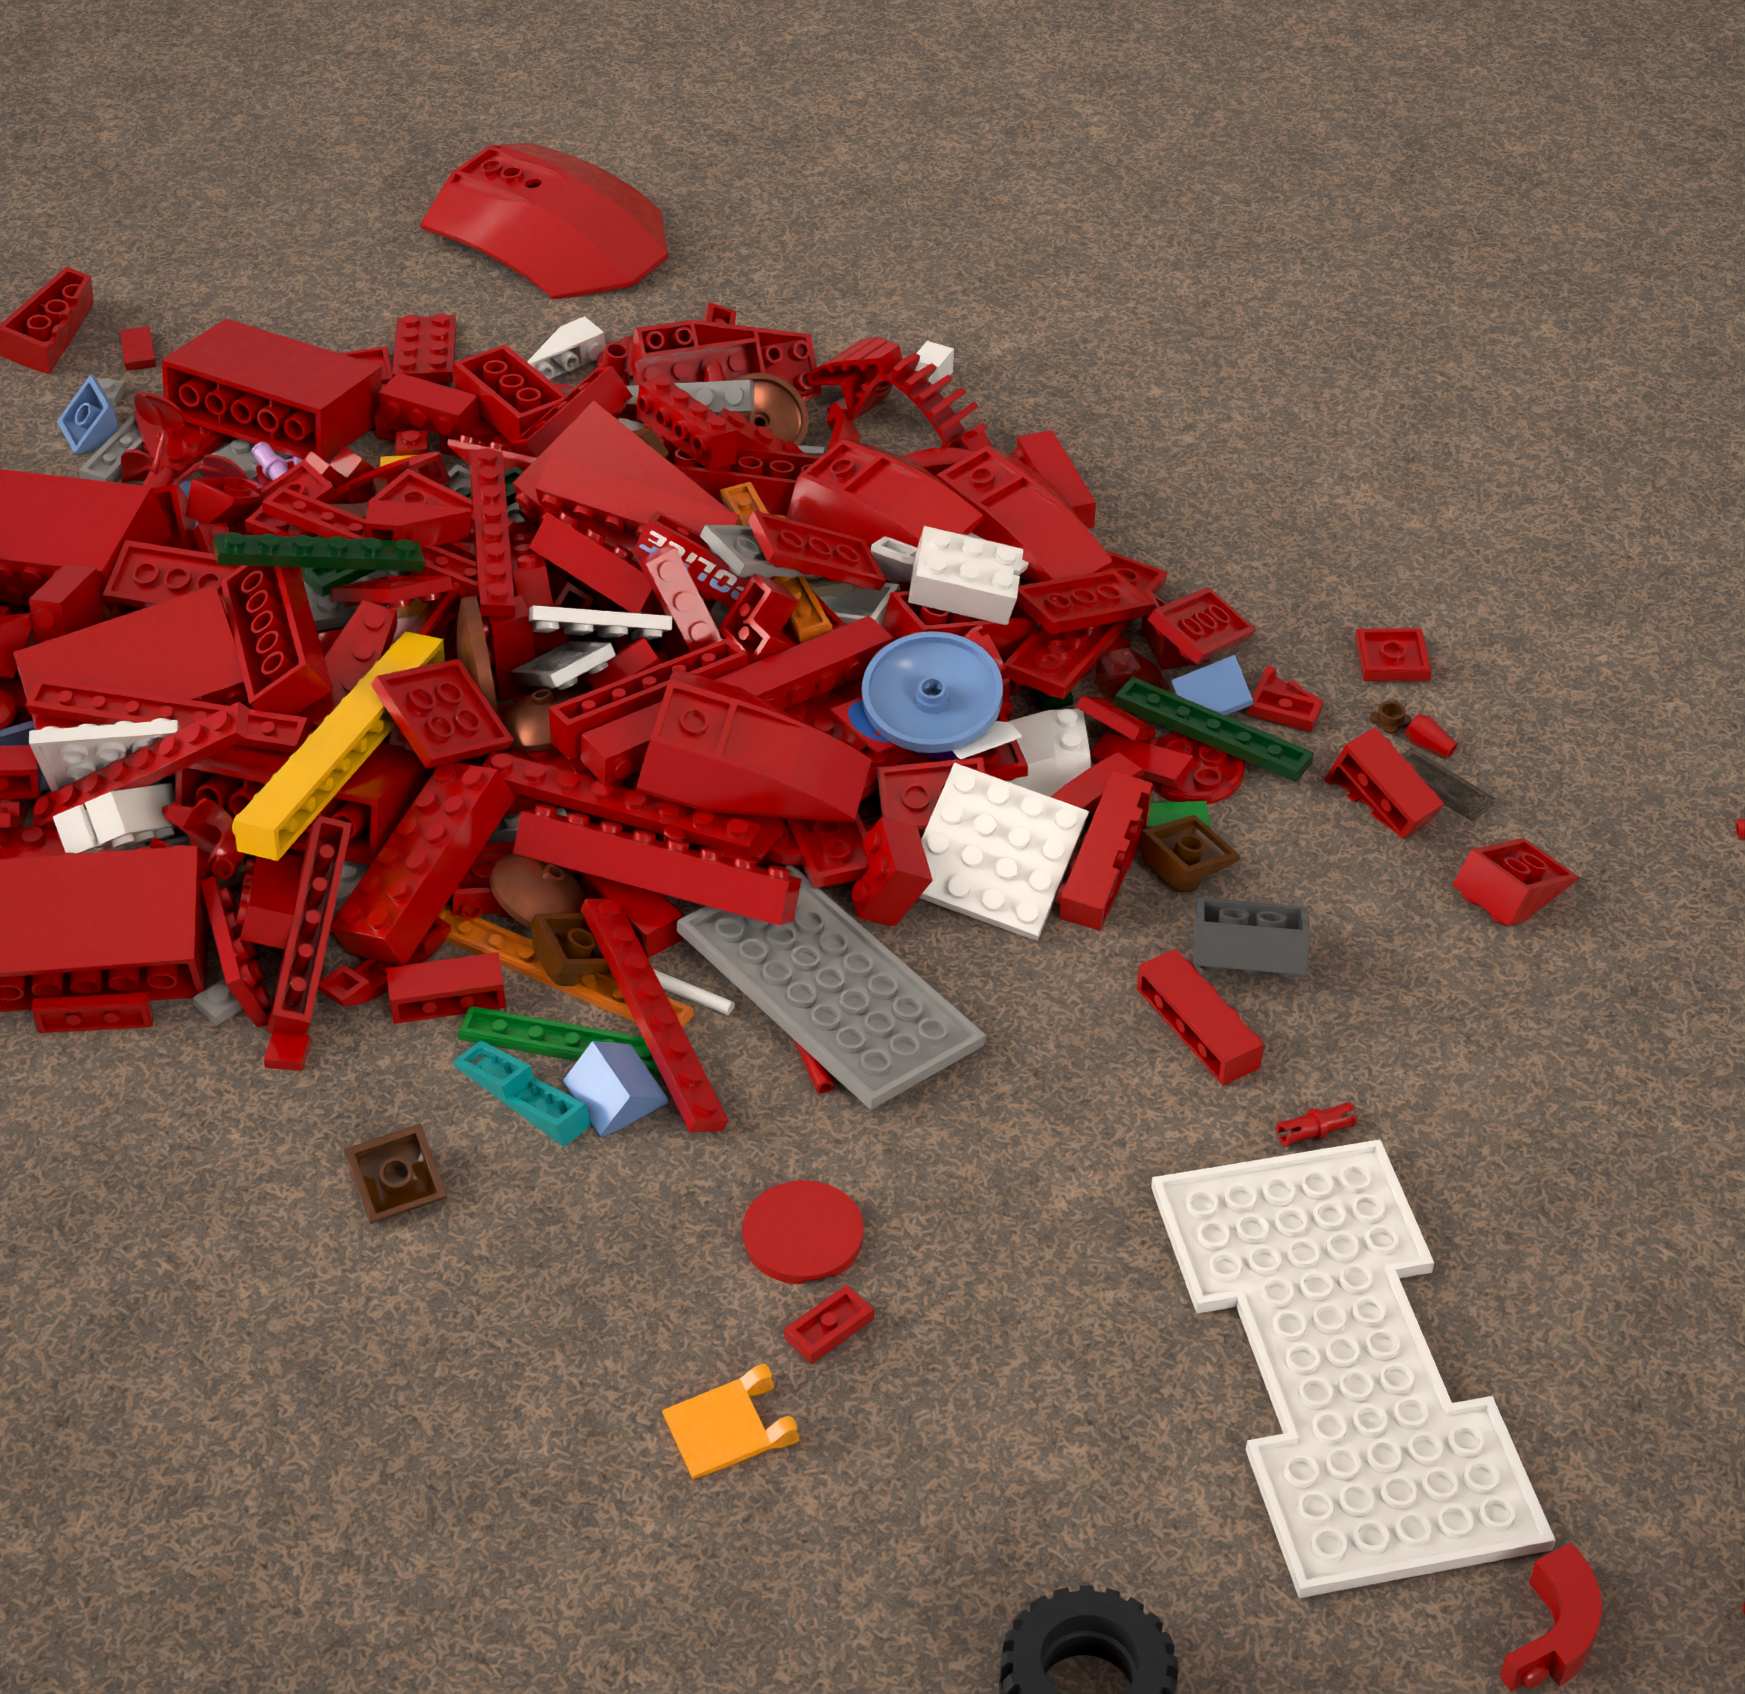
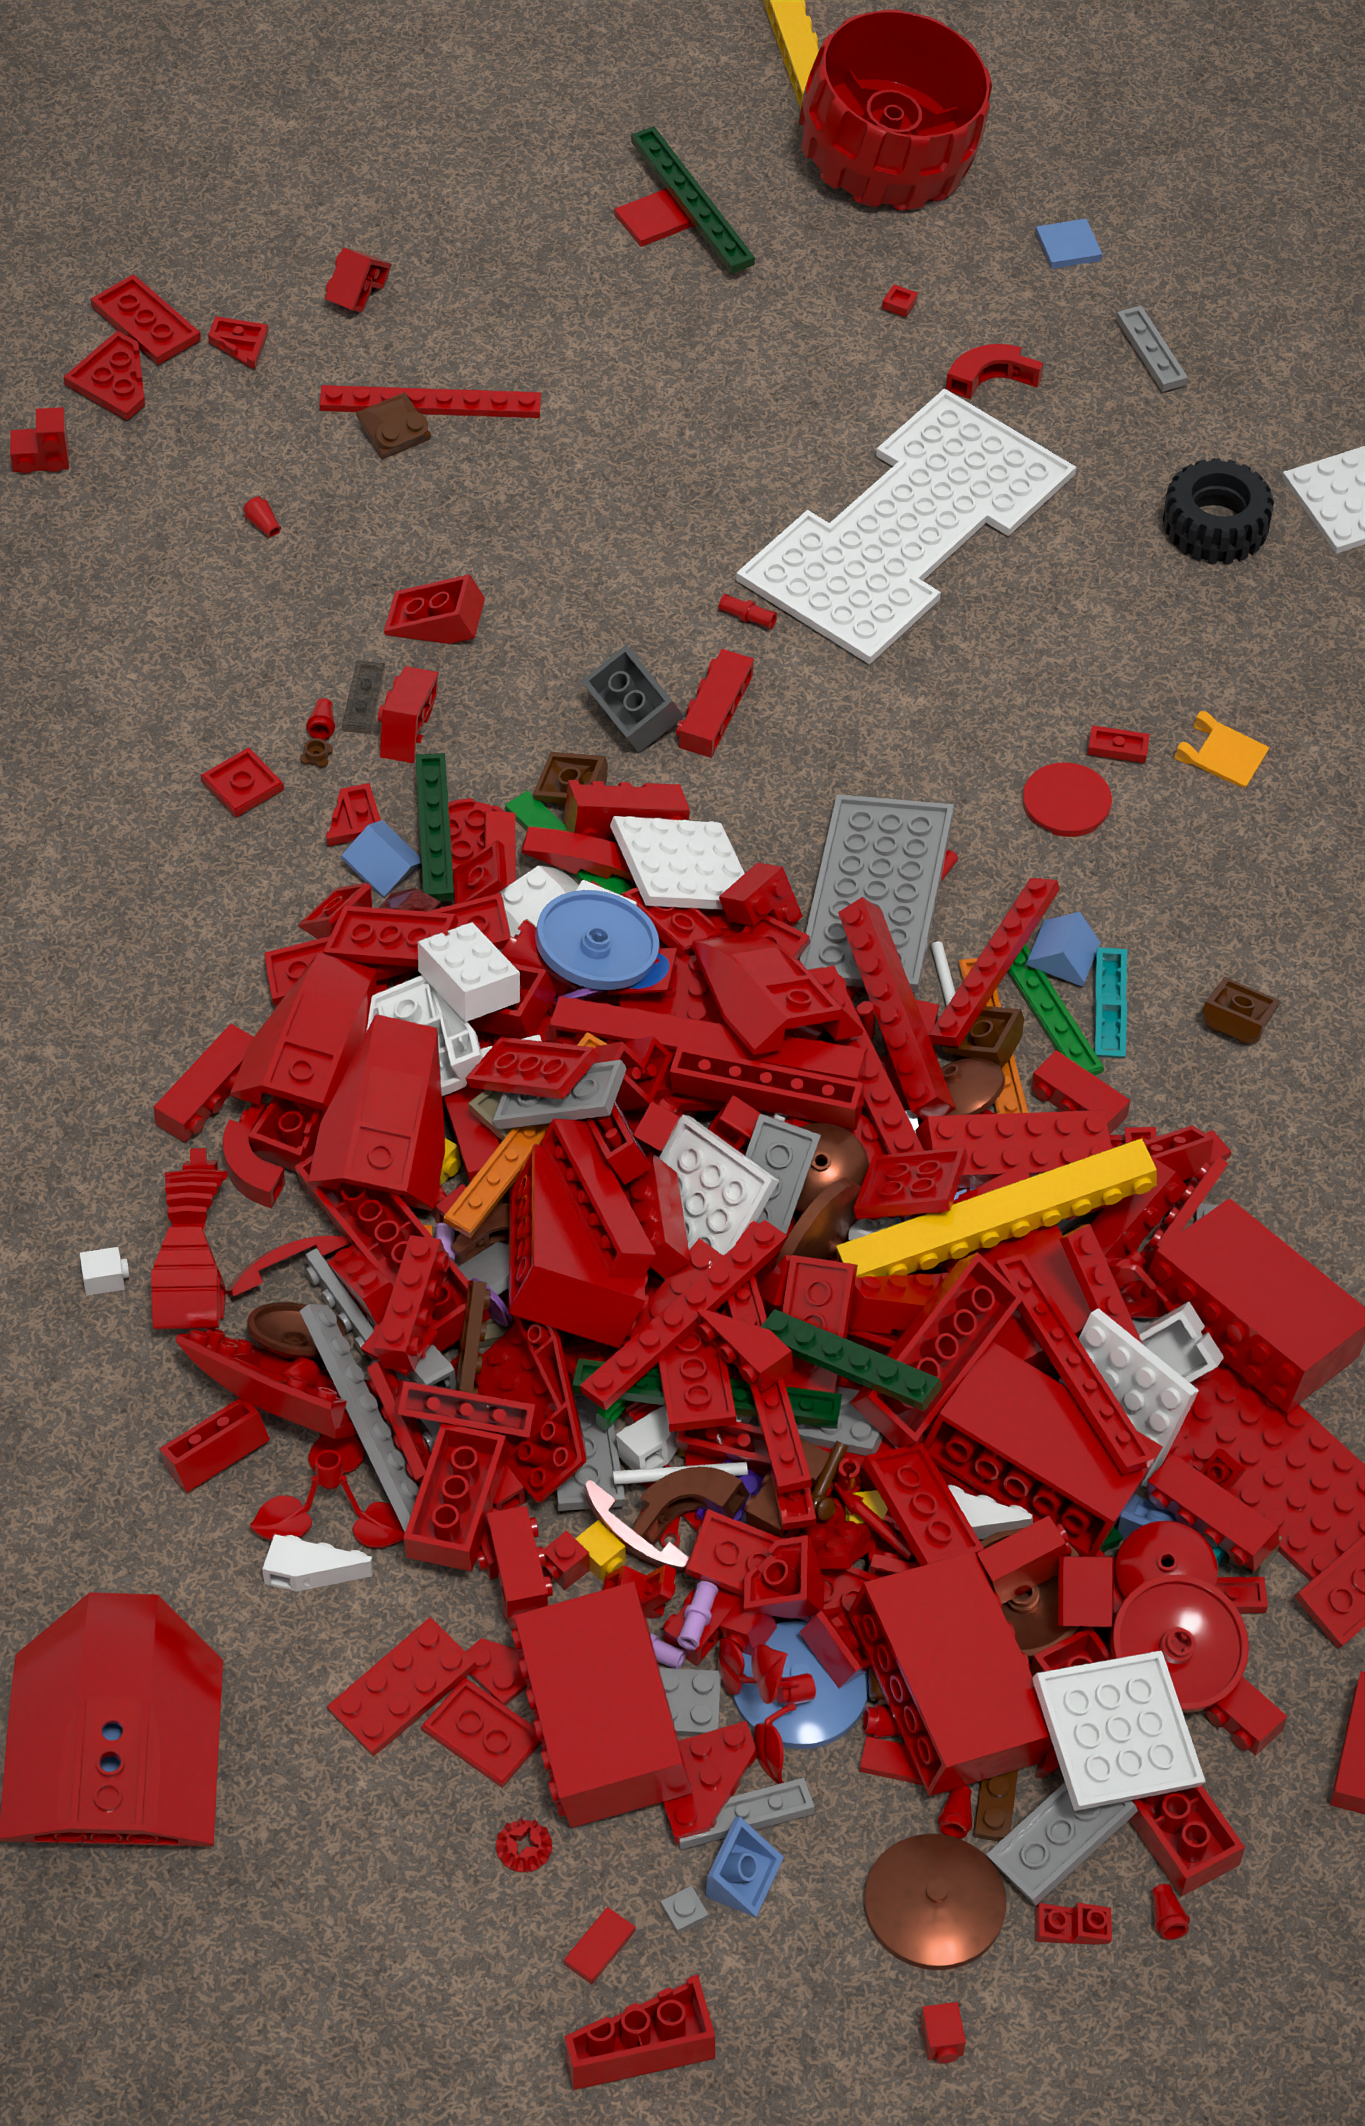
camera: 130 degrees left, 10 degrees up
(1201, 625) = (334, 876): red plate -> none

